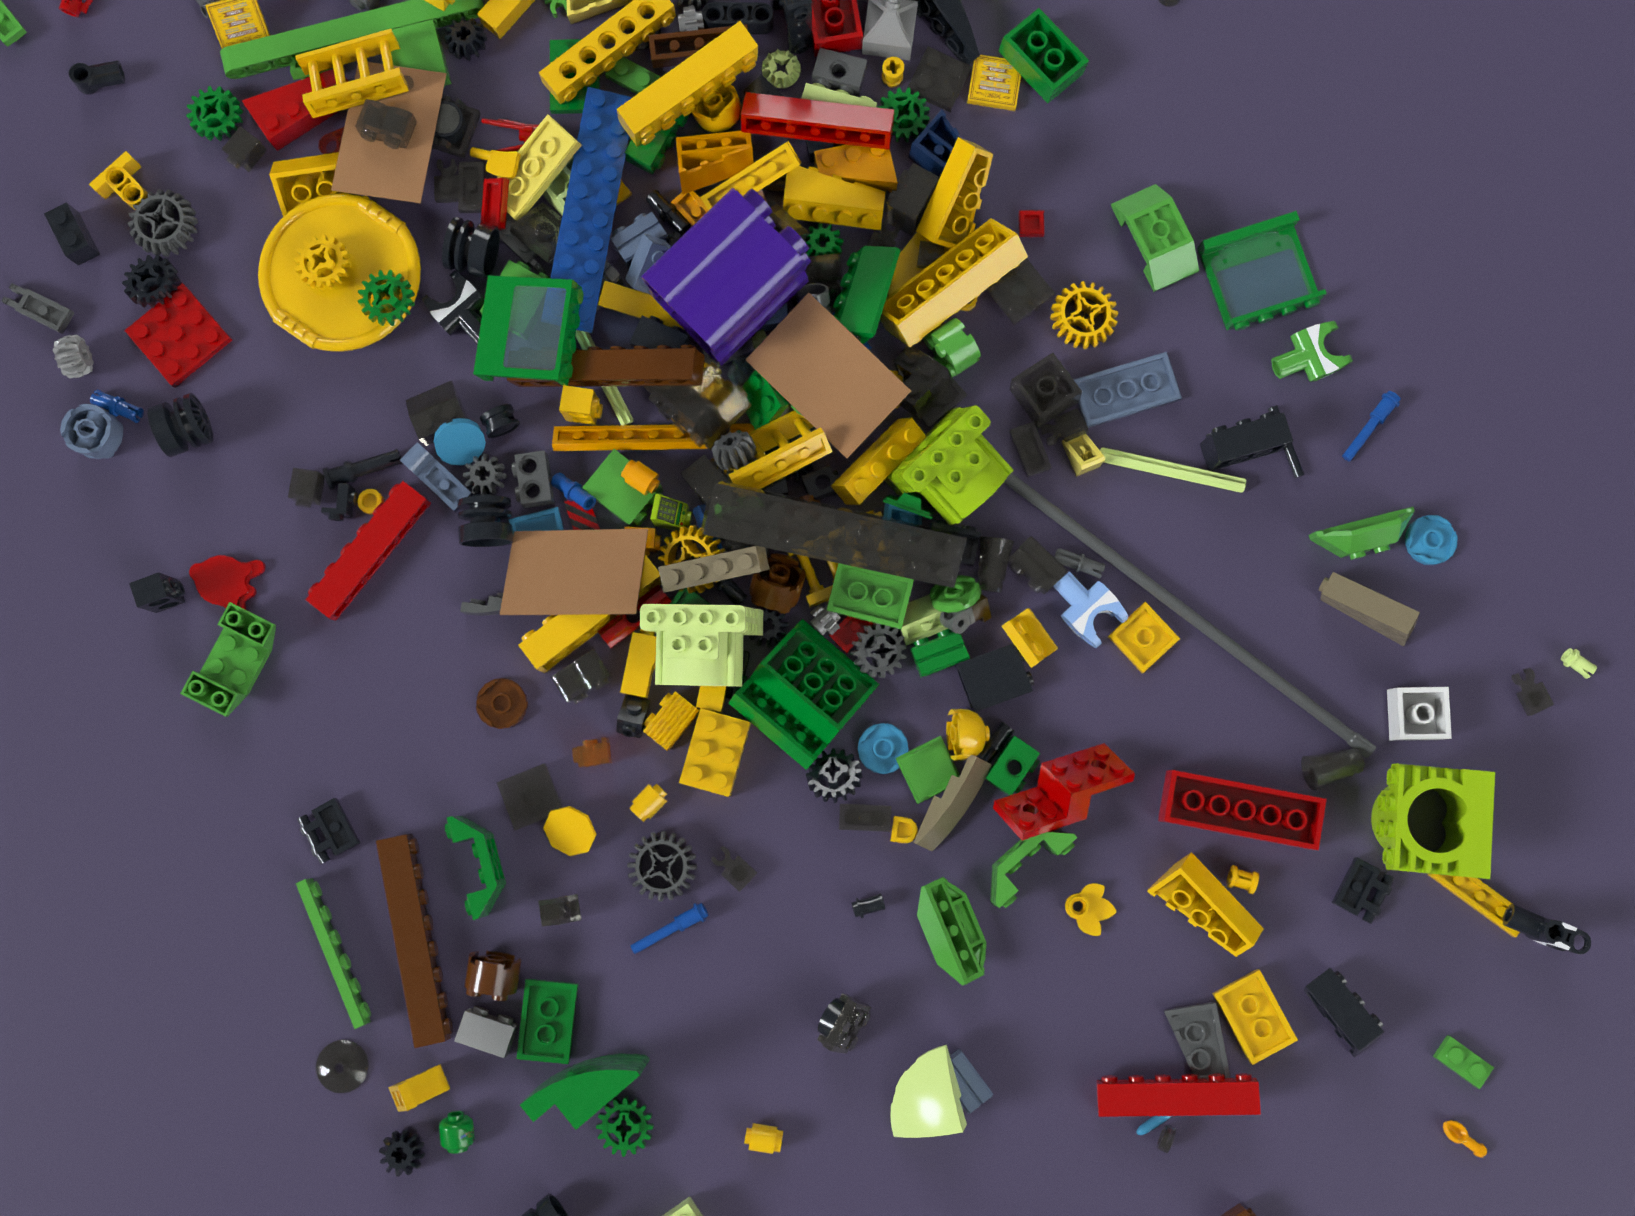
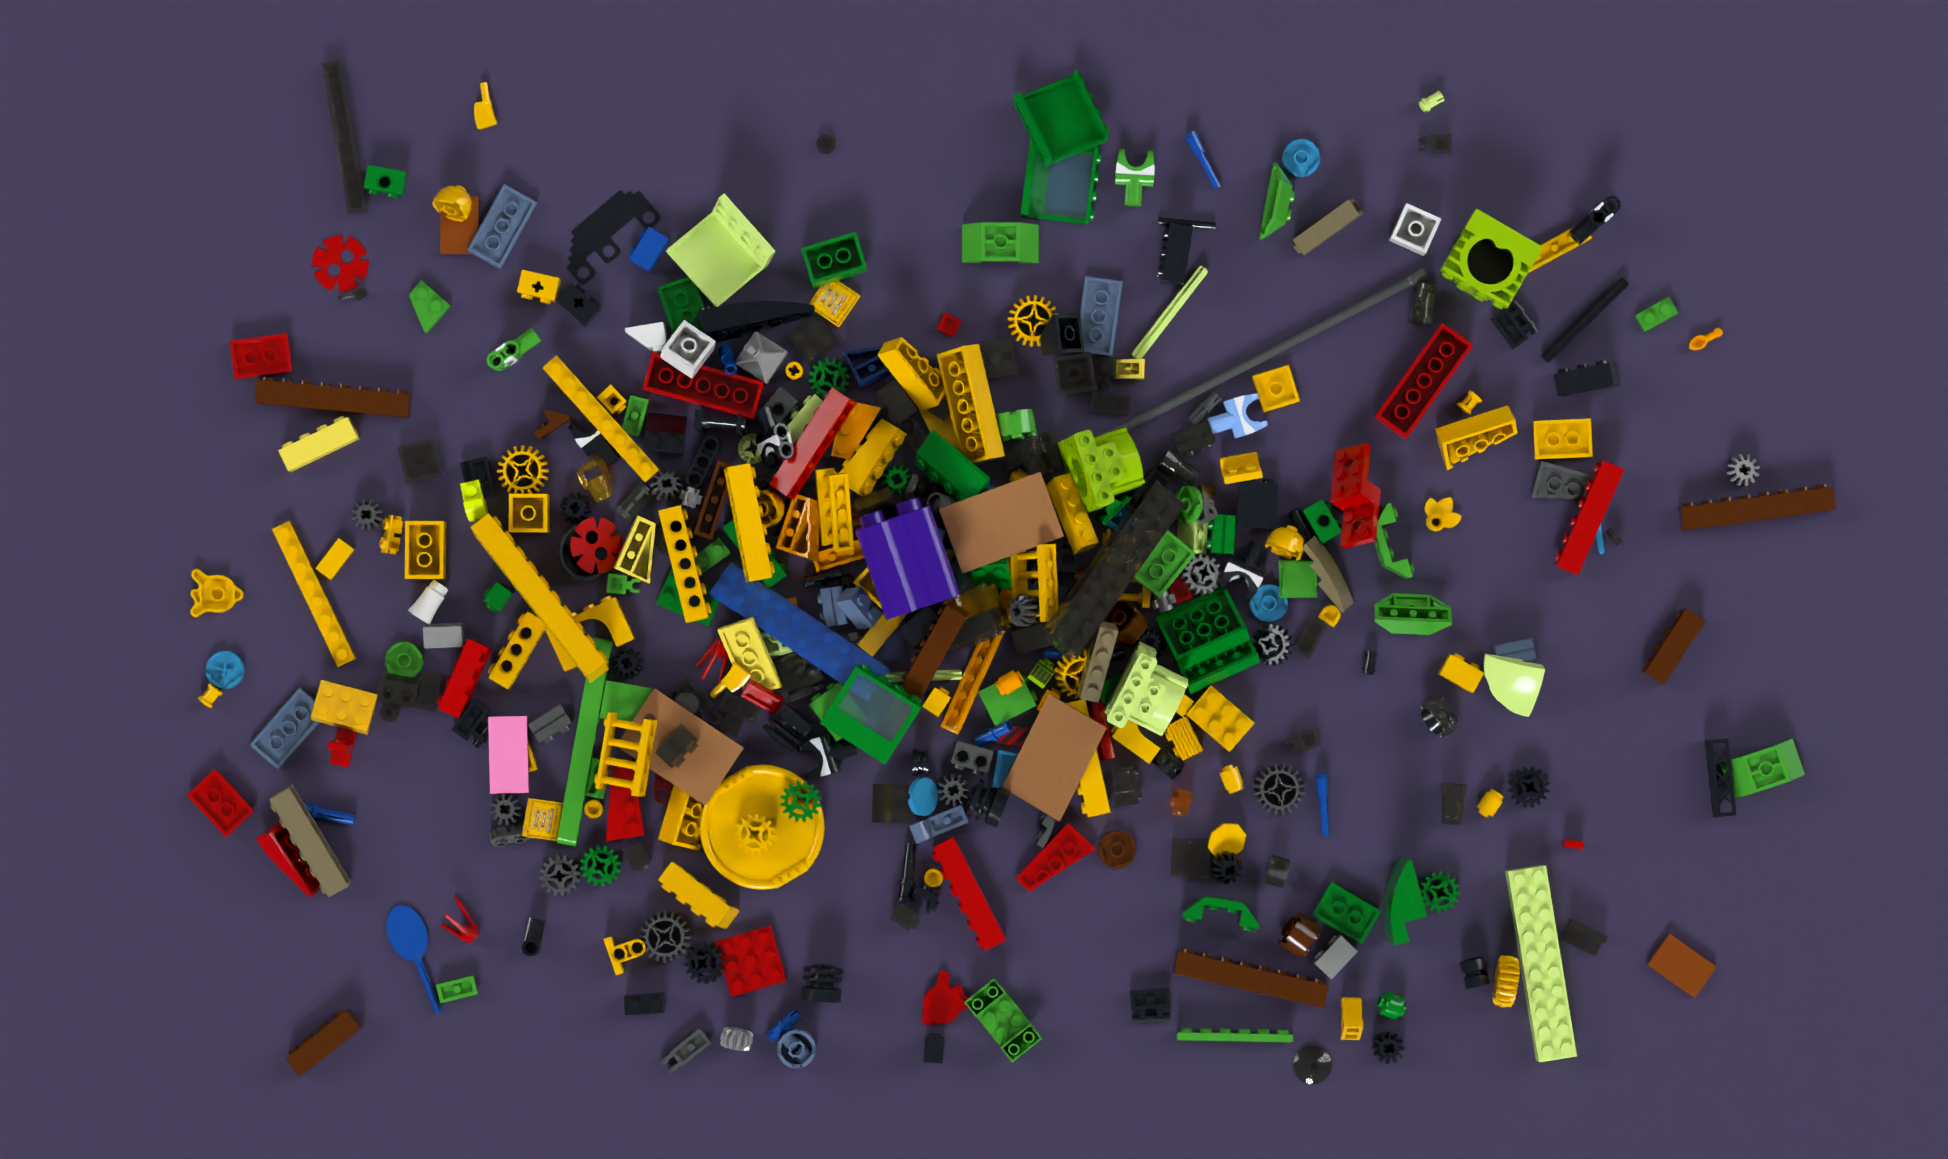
camera: 70 degrees left, 5 degrees up
(194, 69) = (560, 884): none -> dark grey gear
(225, 238) = (698, 896): none -> yellow wedge
(279, 77) = (593, 808): none -> yellow tile
(462, 635) = (1056, 856): none -> red wing
(536, 845) = (1233, 866): none -> black gear
(743, 1090) = (1452, 802): none -> clear smoke plant
(804, 74) = (772, 437): none -> black connector
(817, 1179) = (1532, 779): none -> black gear
(908, 1025) = (1461, 673): none -> yellow brick
(909, 701) = (1246, 569): none -> black connector
(1085, 351) = (1062, 335): none -> black slope
(1336, 237) = (1061, 119): none -> green panel
(1412, 975) = (1584, 320): none -> black axle

